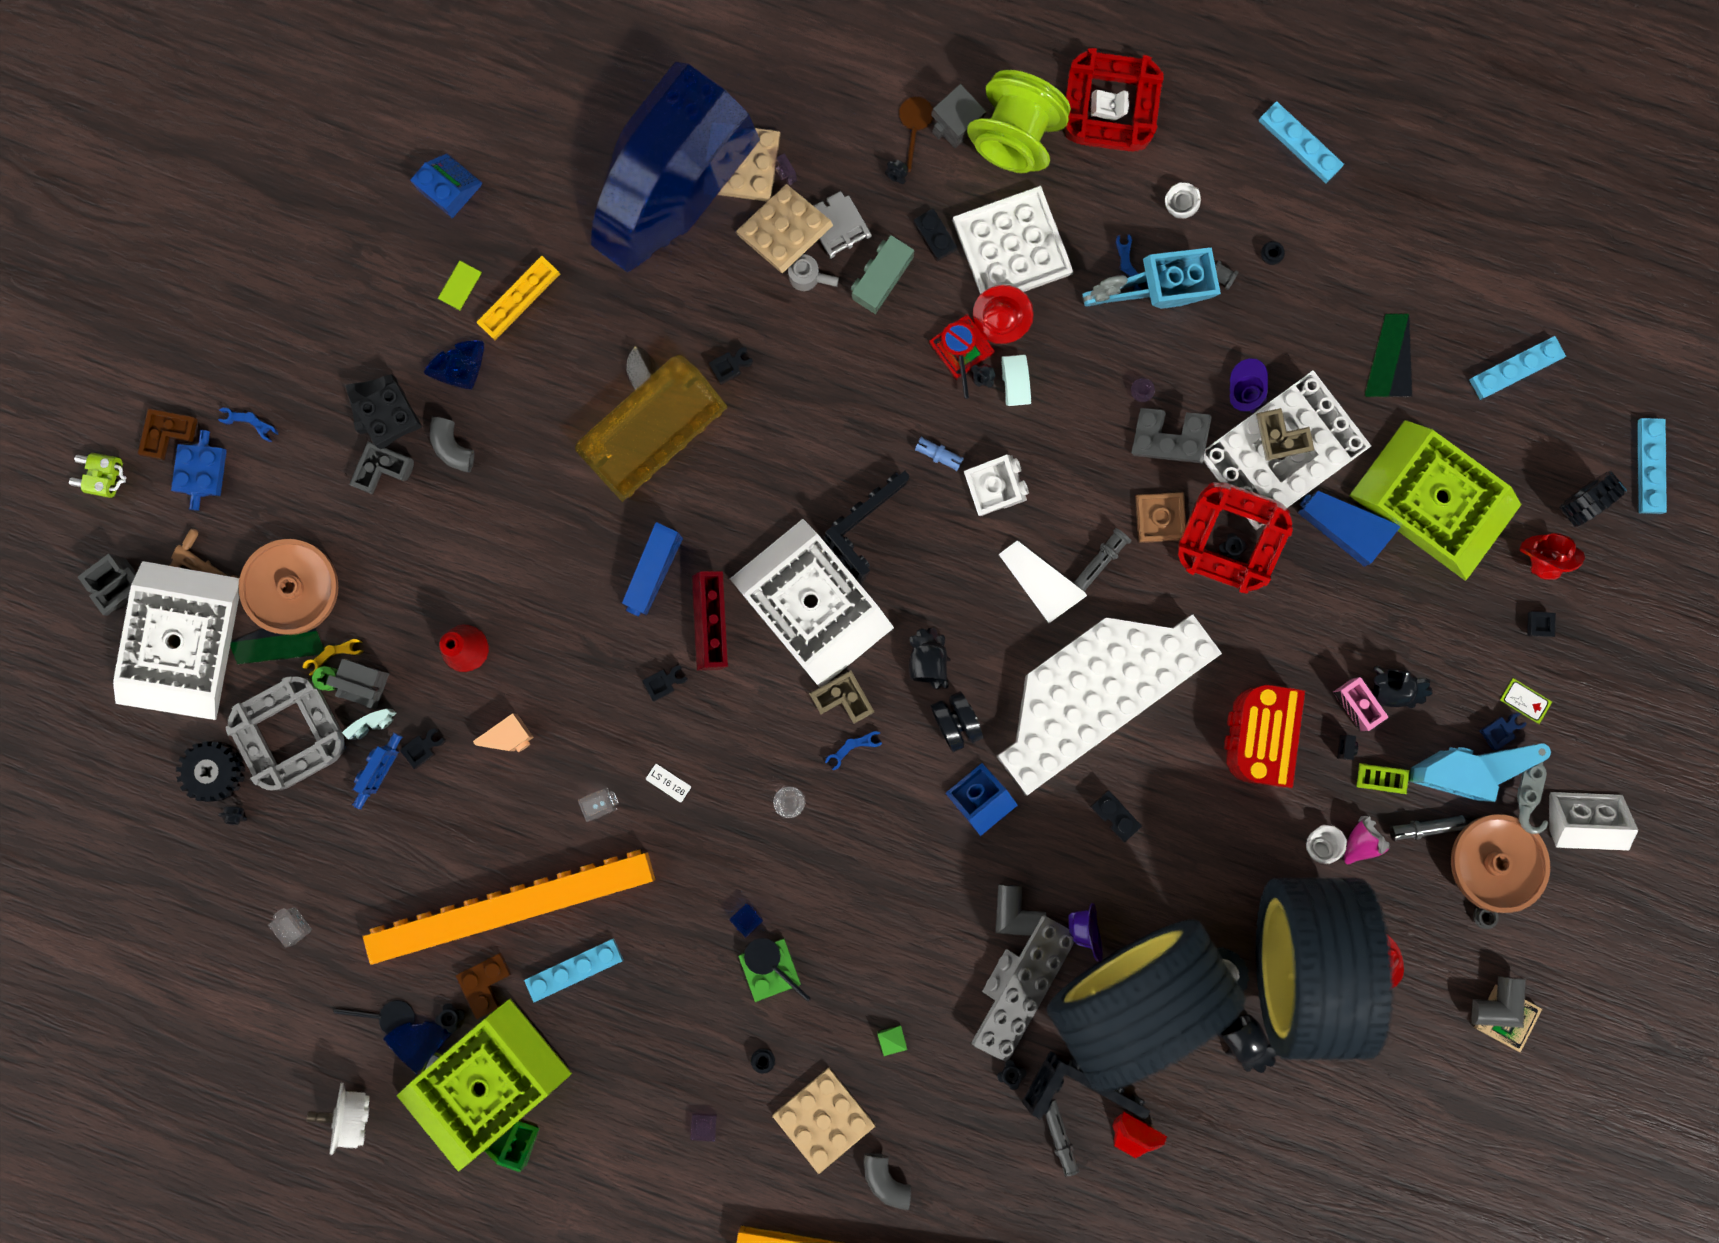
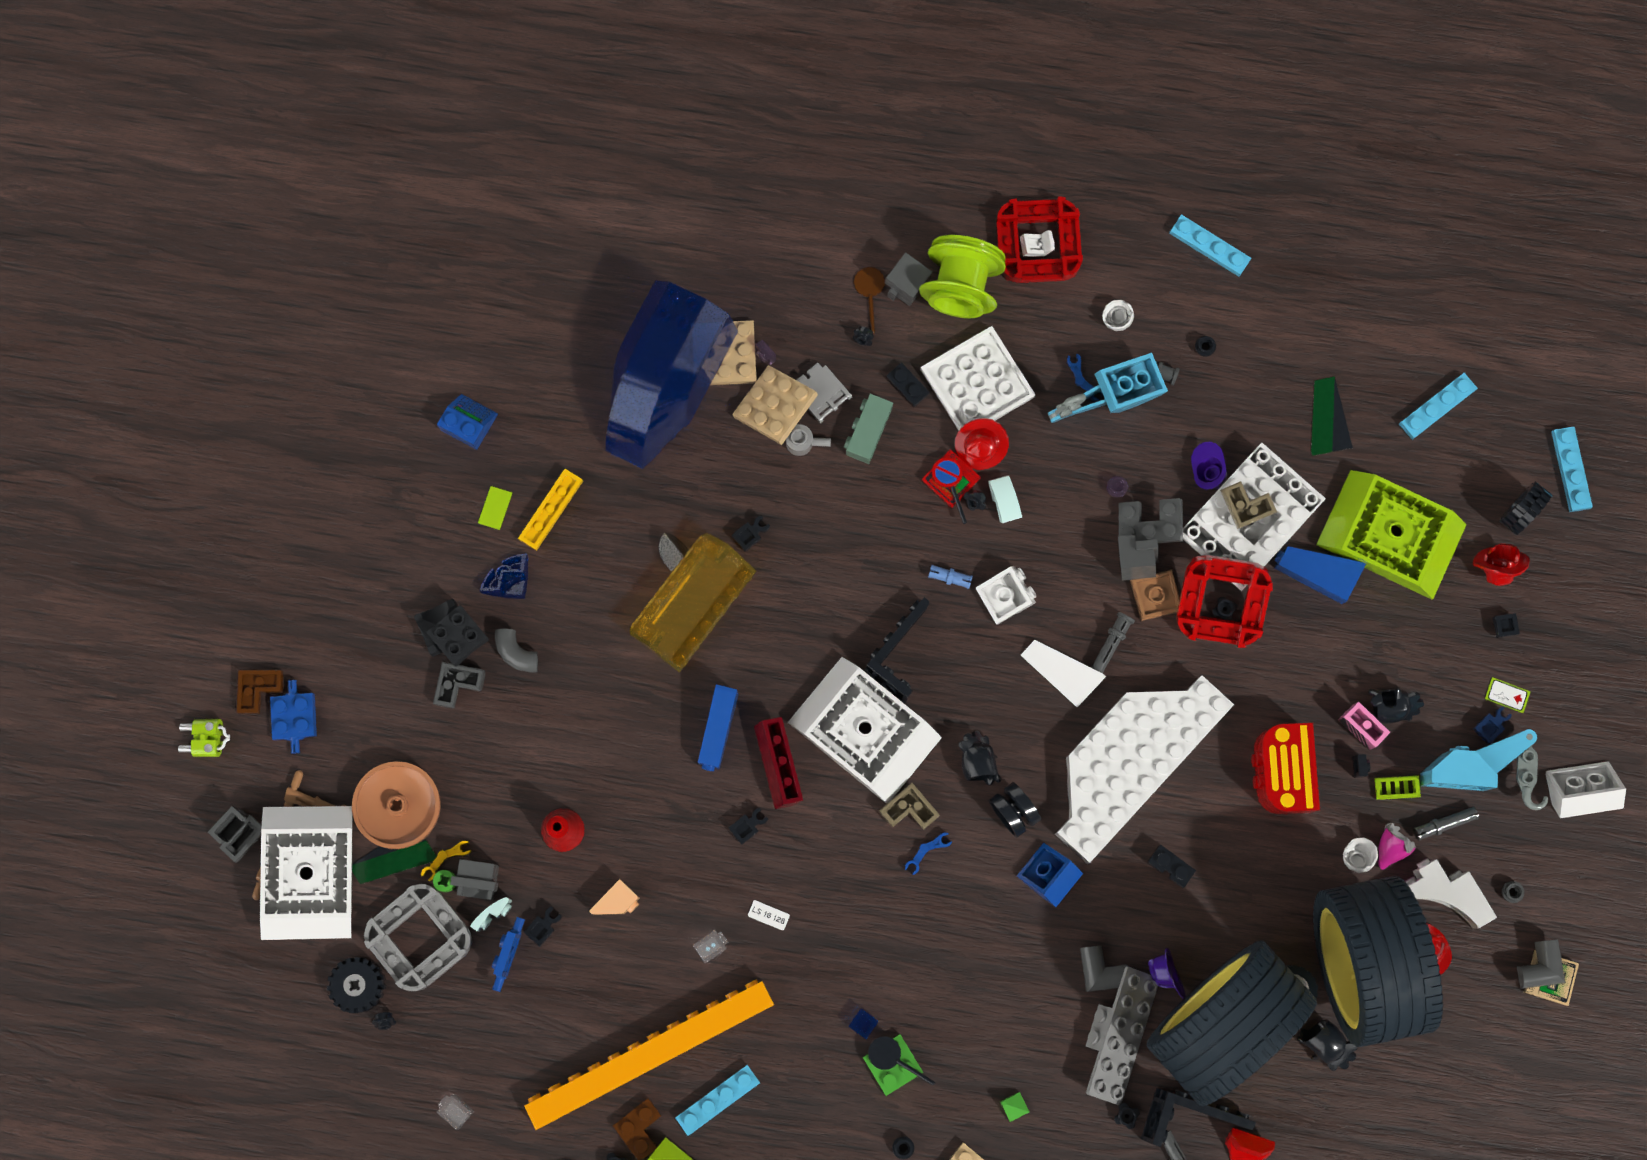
camera: 15 degrees left, 5 degrees down
(251, 418) = (329, 661): blue piece -> none
(789, 802) = (881, 910): clear wheel -> none
(1148, 471) = (1137, 557): none -> dark grey plate
(1426, 906) = (1458, 893): none -> white arch
(1500, 864) = (1514, 842): nougat dish -> none

